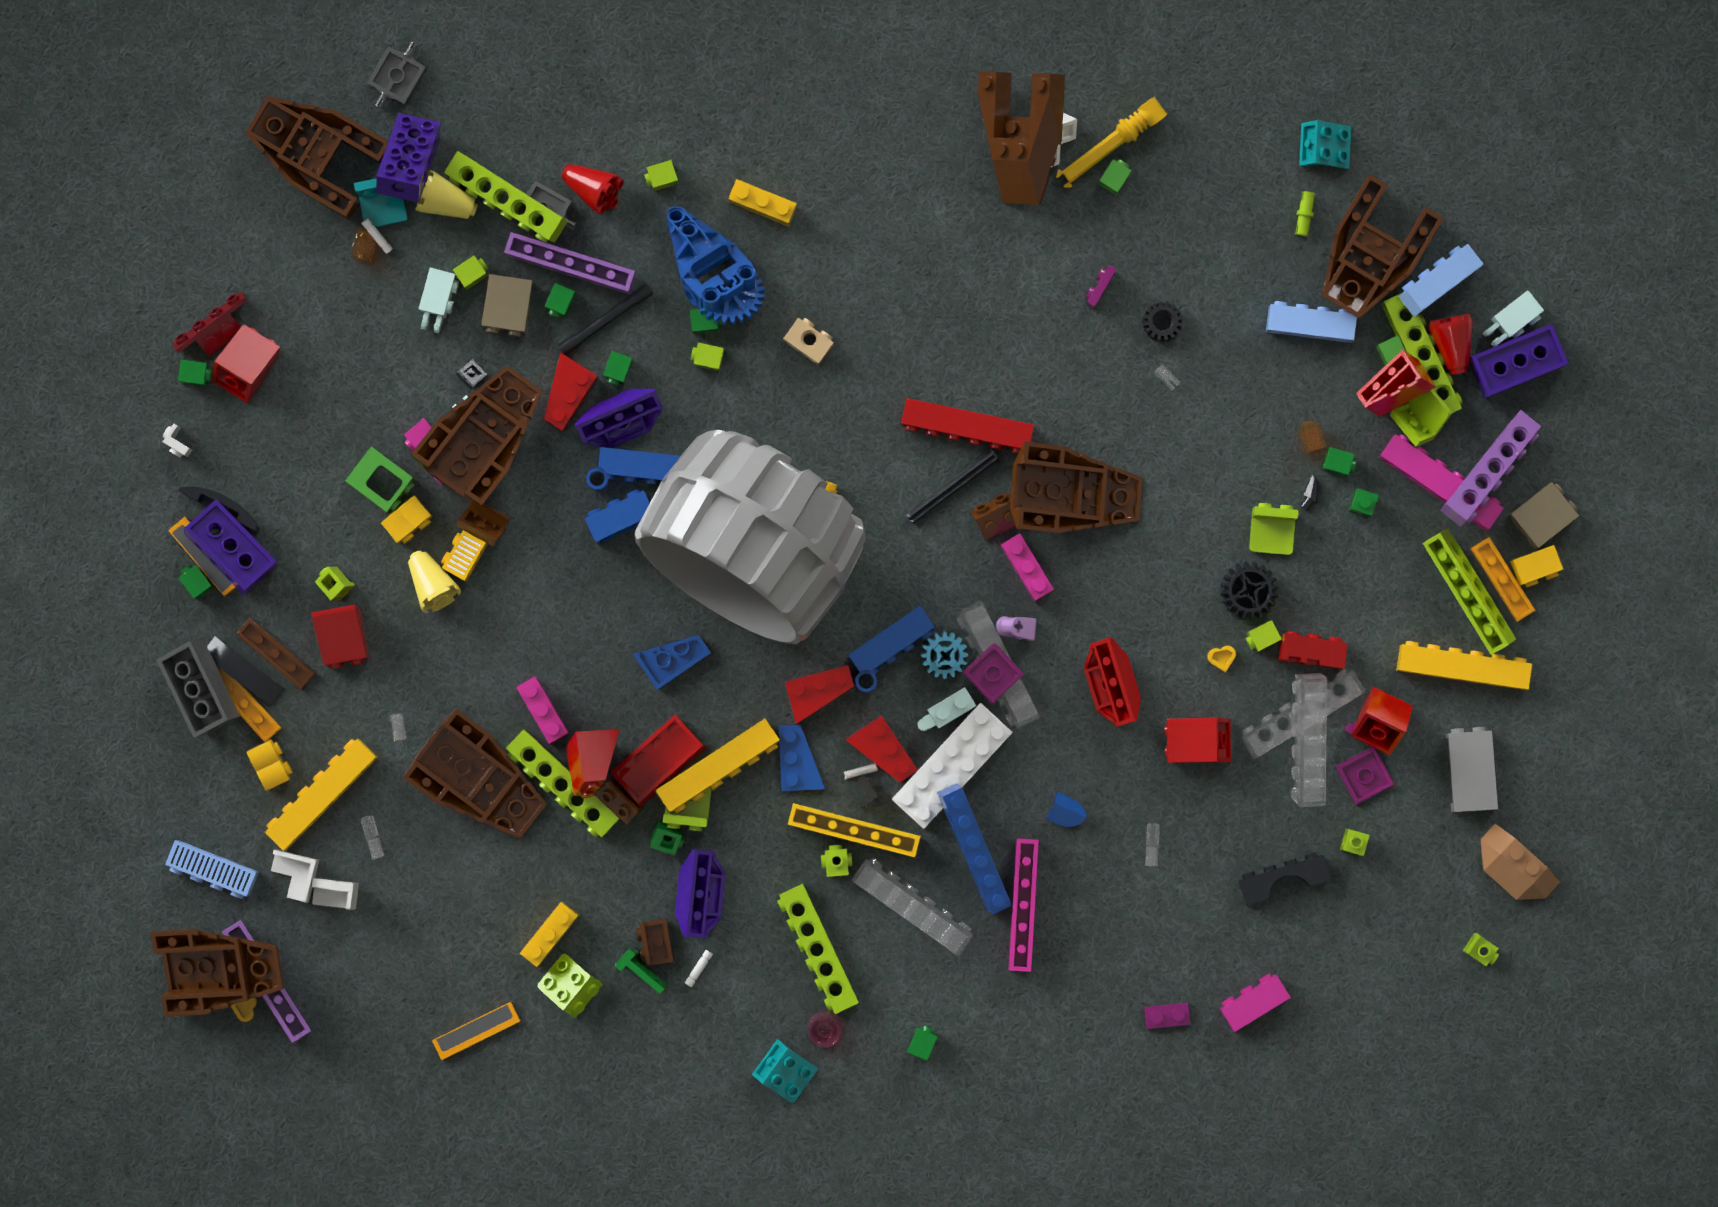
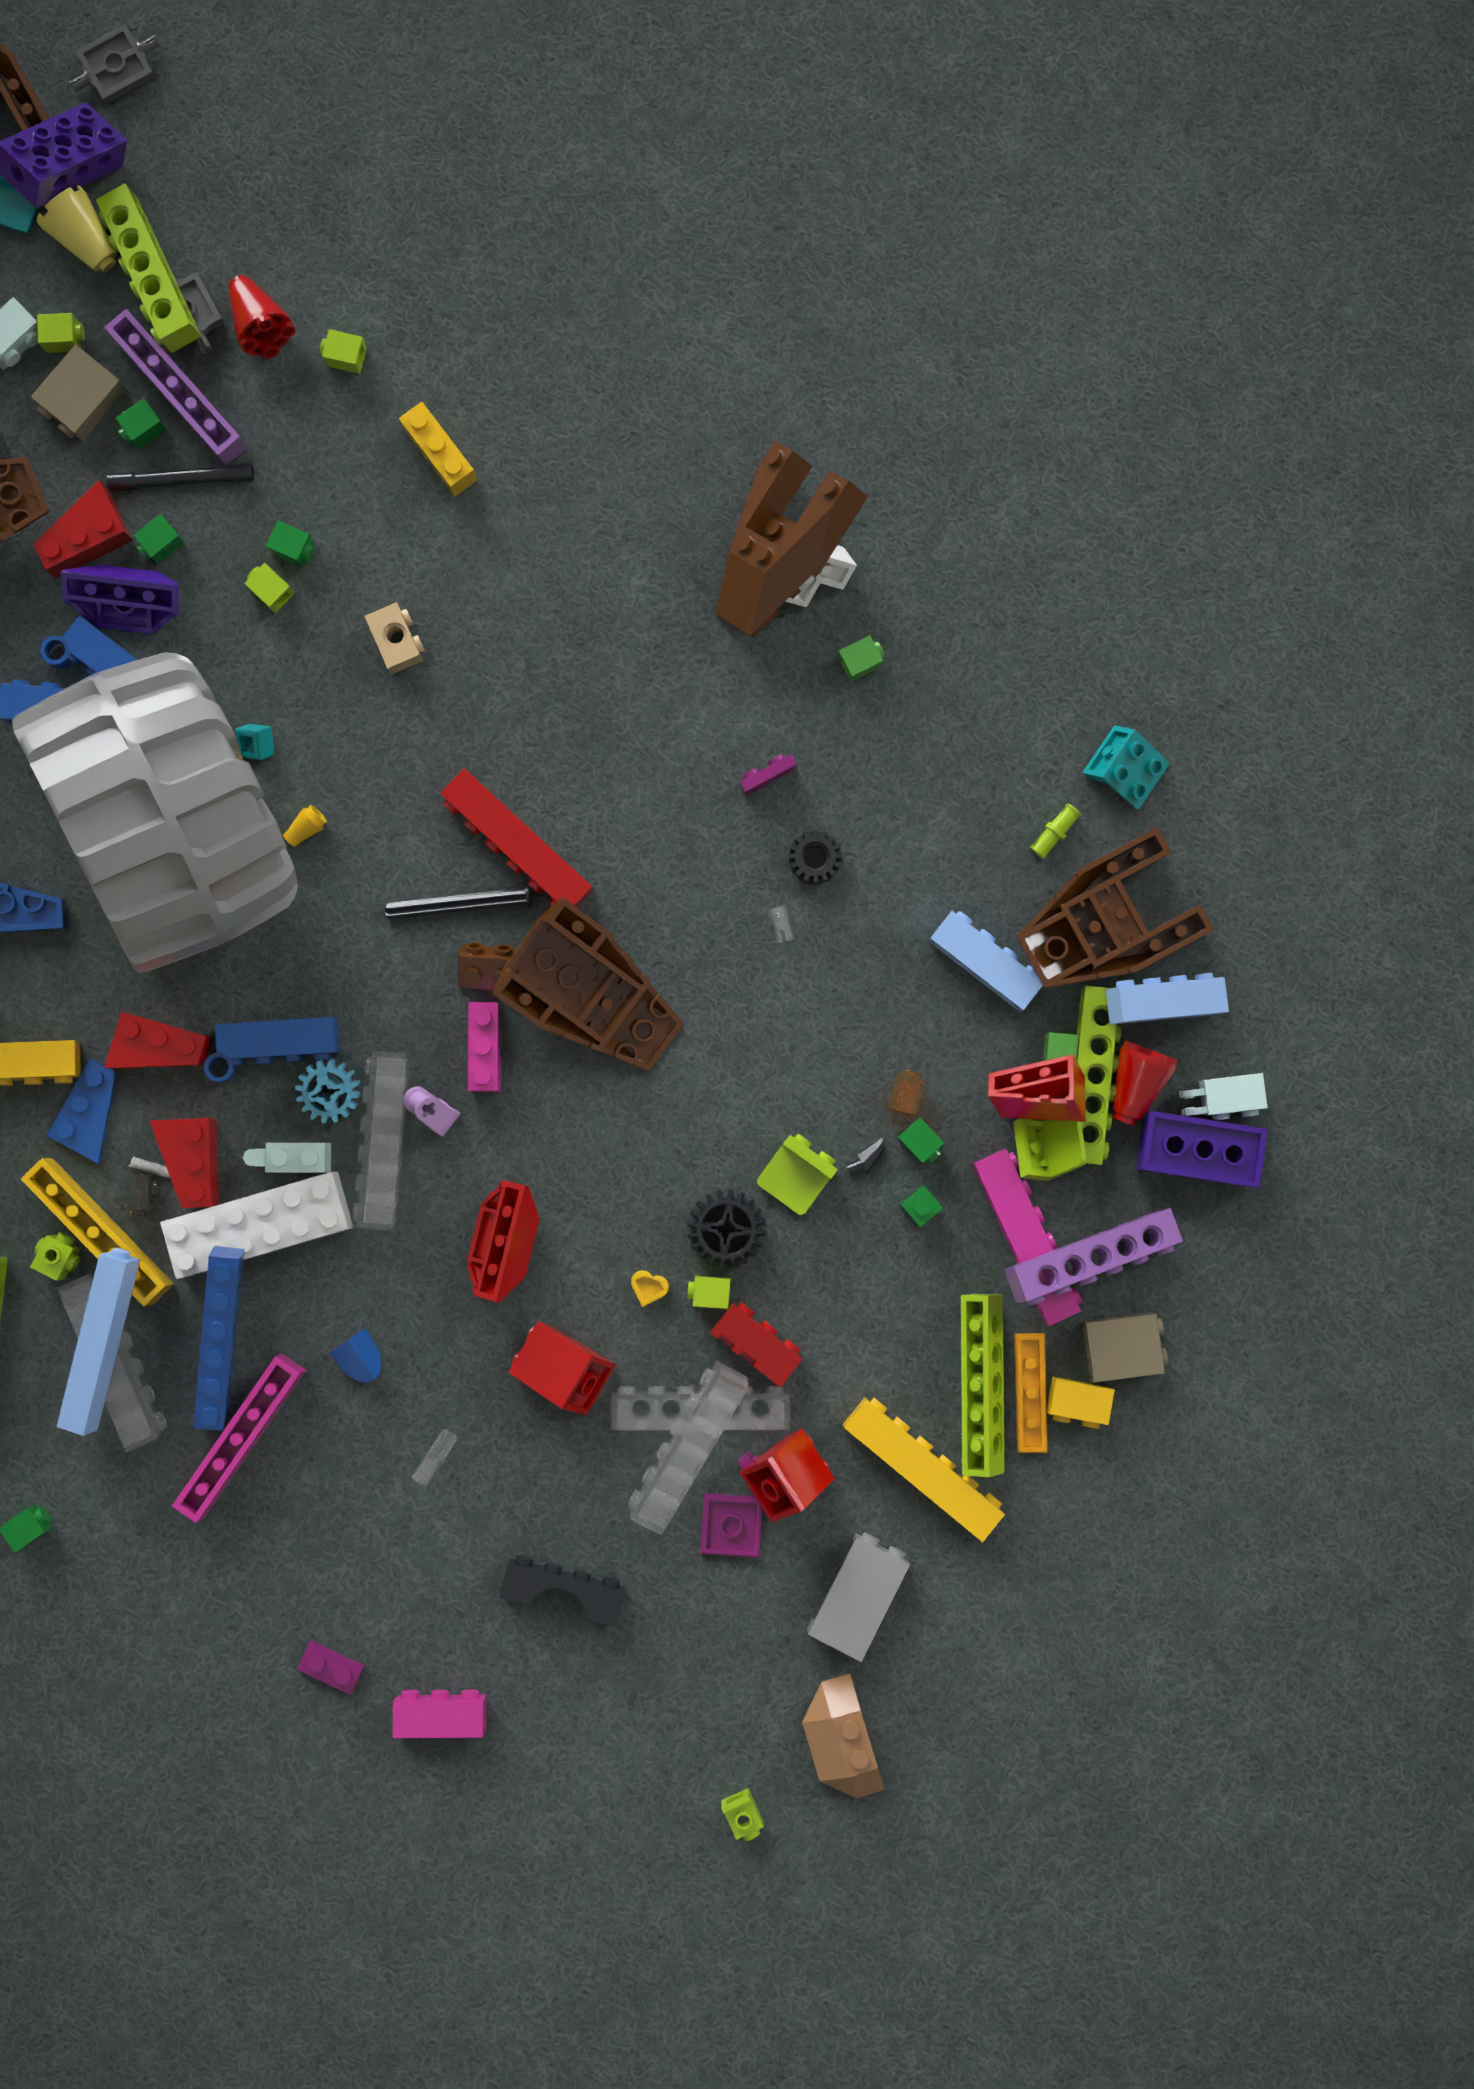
camera: 30 degrees right, 0 degrees up
(701, 253) = (333, 459): blue connector -> none
(901, 894) = (98, 1342): none -> light blue brick
(993, 673) = (367, 1146): magenta tile -> none
(1126, 131) = (905, 614): yellow piece -> none
(1354, 842) = (670, 1598): lime brick -> none

